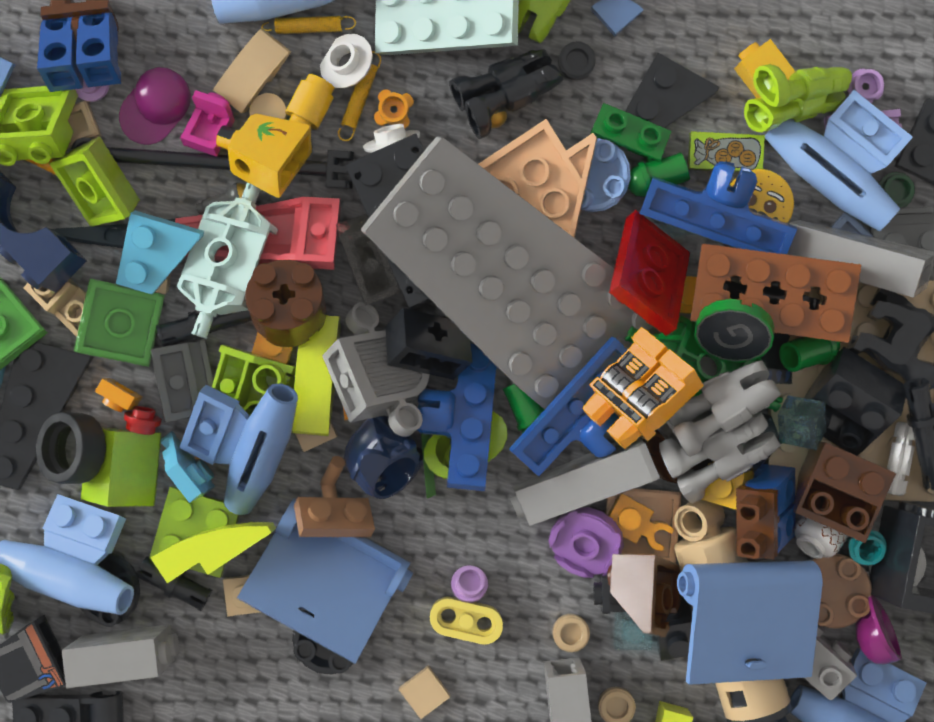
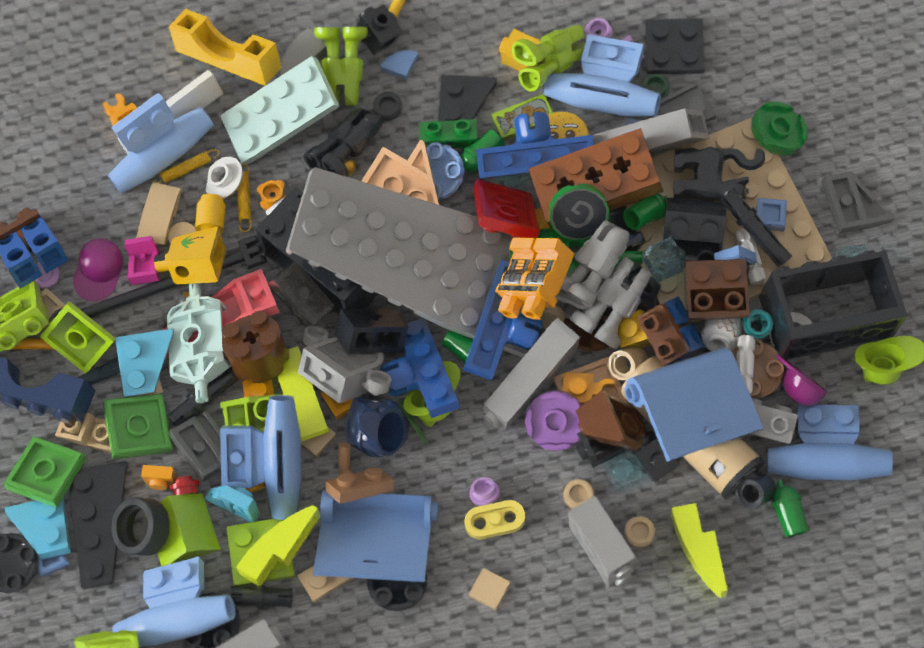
camera: 20 degrees left, 20 degrees down
(833, 583) = (745, 359): none -> white axle
(884, 459) = (737, 252): none -> medium blue tile

